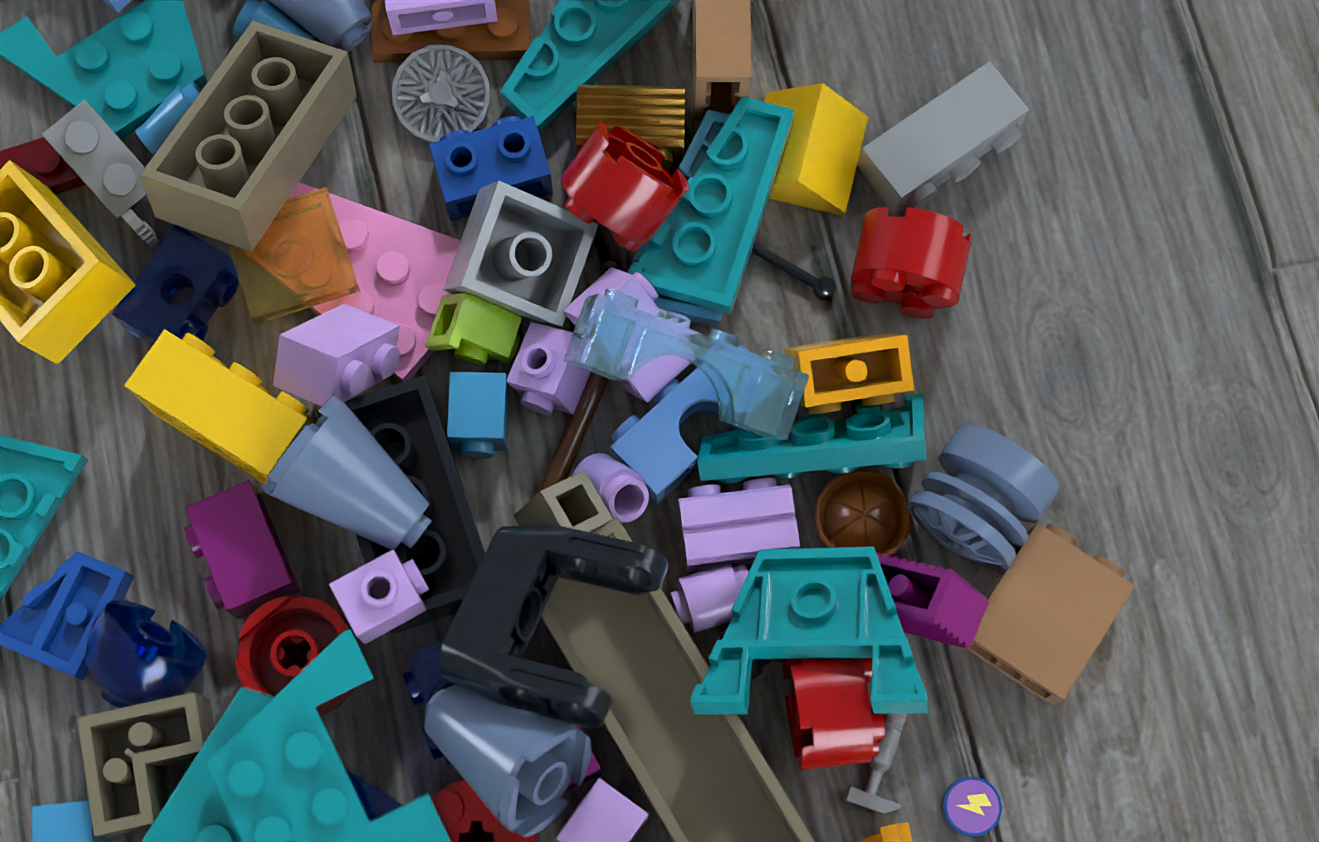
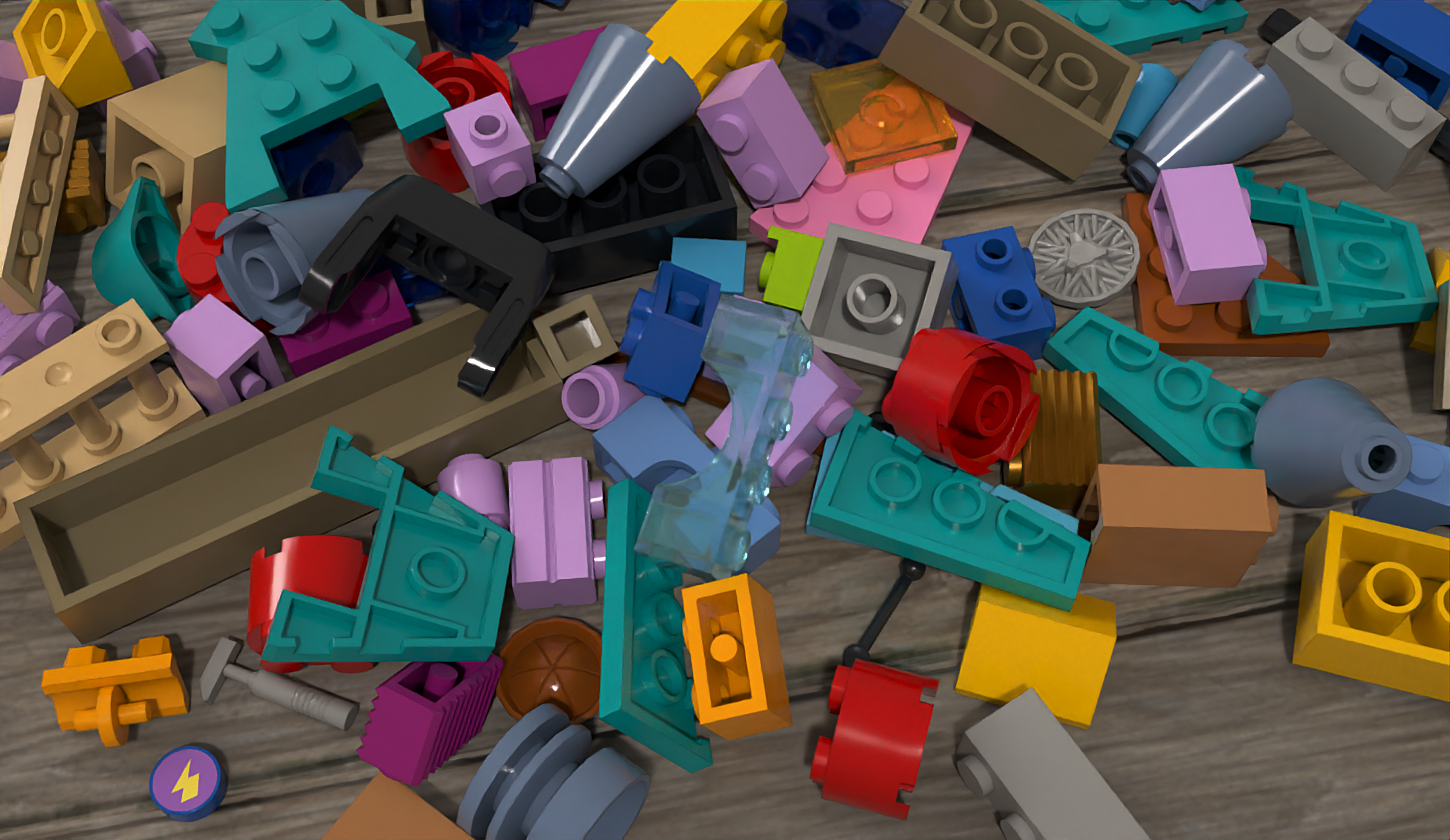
camera: 95 degrees right, 15 degrees down
(558, 426) = (669, 331): none -> blue brick

